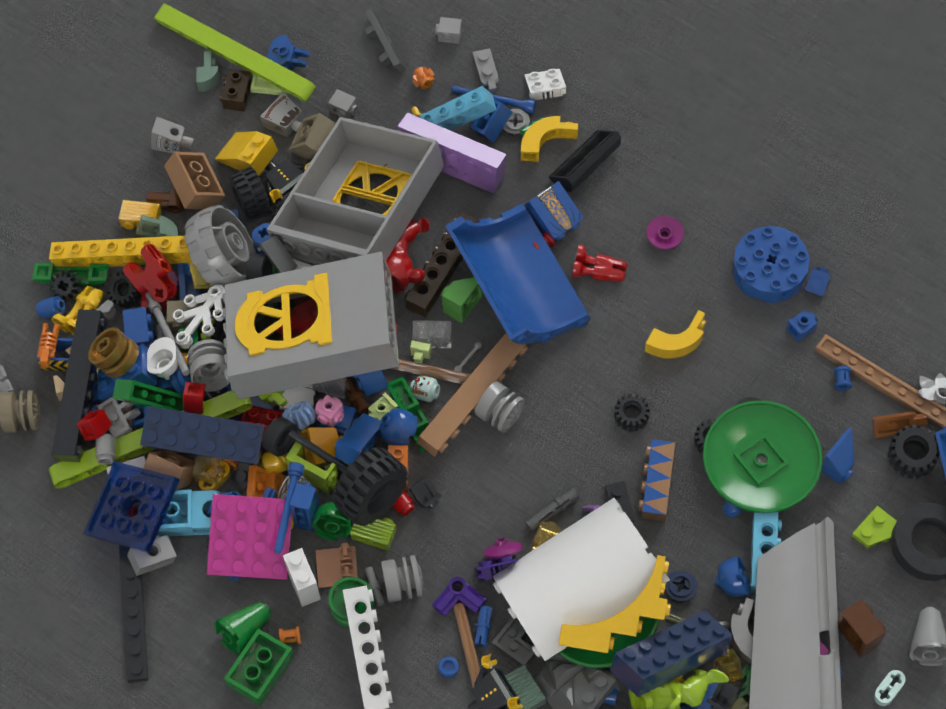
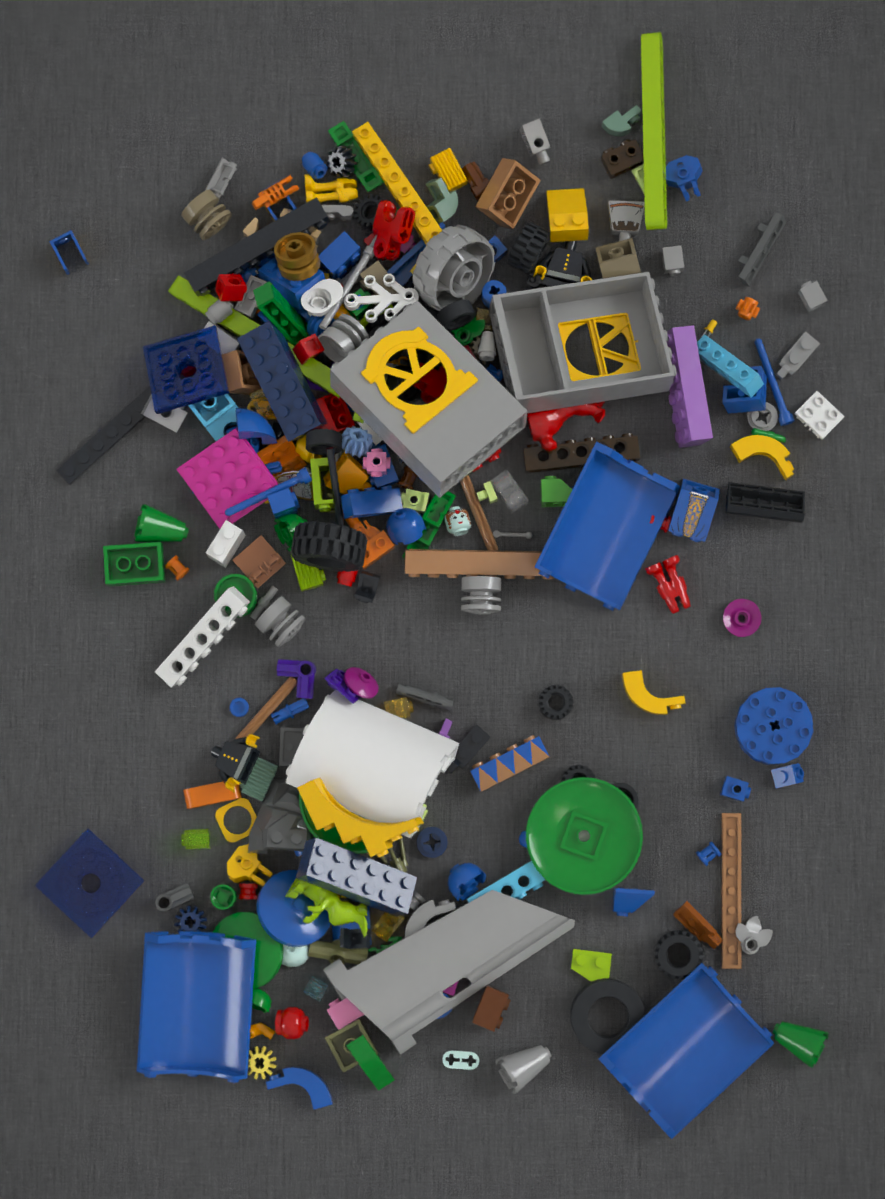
camera: 55 degrees right, 20 degrees up
(221, 482) = (253, 425): none -> blue brick
(278, 255) = (478, 320): dark grey hinge -> none

